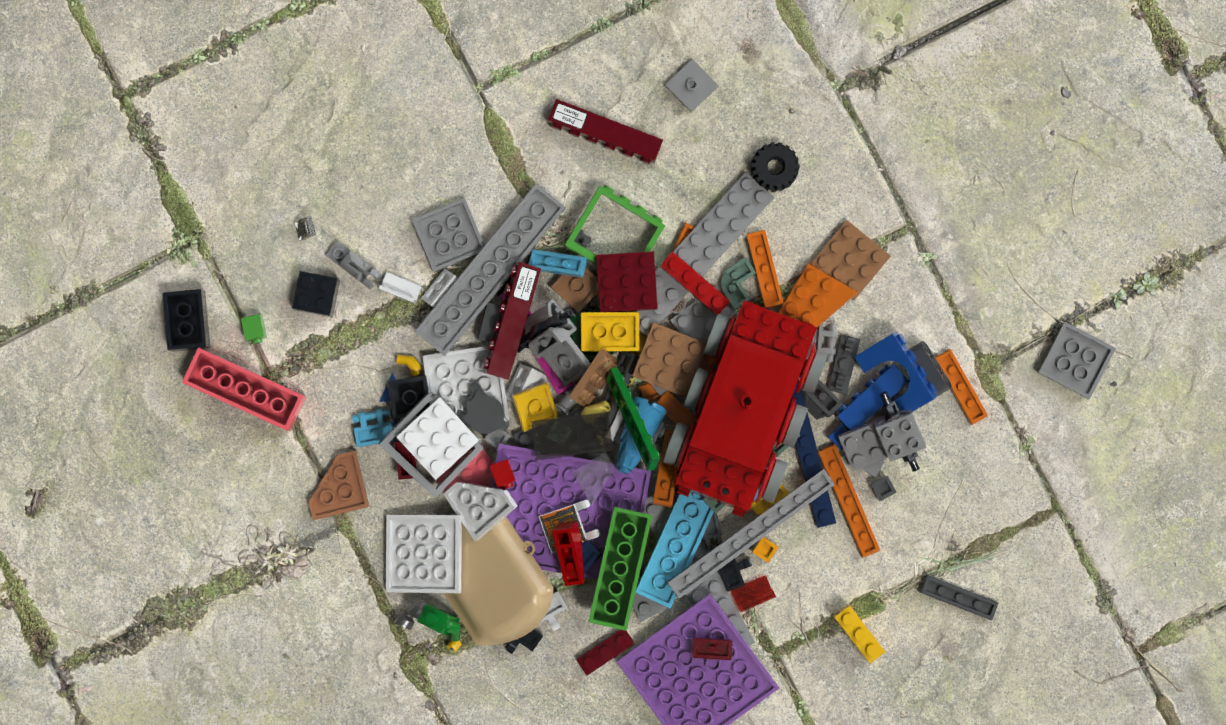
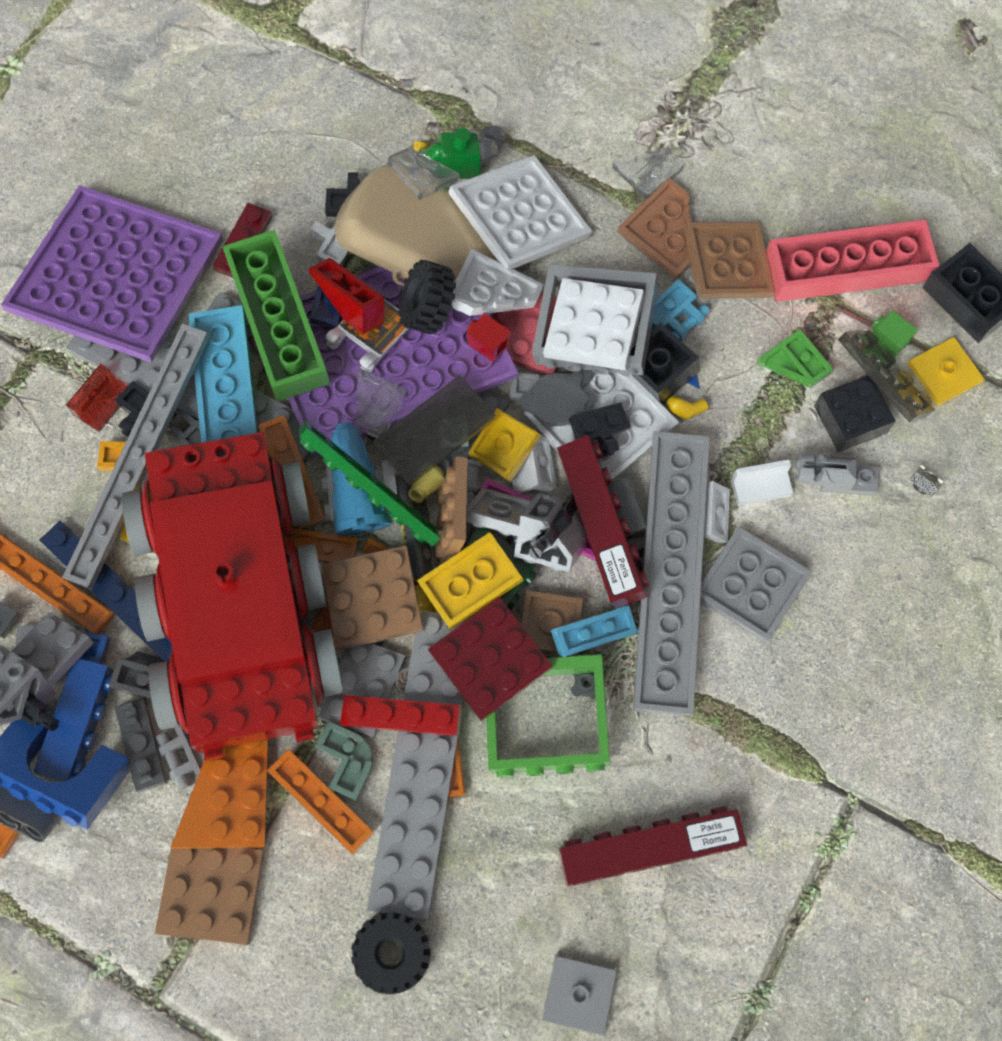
camera: 150 degrees right, 15 degrees down
(239, 286) = (945, 371): none -> yellow plate
(280, 304) = (886, 374): none -> clear smoke plate
(317, 439) = (728, 260): none -> medium nougat plate
(322, 349) = (797, 360): none -> bright green wing
(469, 616) = (421, 173): none -> clear wing
(472, 380) = (601, 425): none -> black plate
(525, 517) = (427, 297): none -> black tyre
(712, 648) = (109, 298): dark red plate -> none

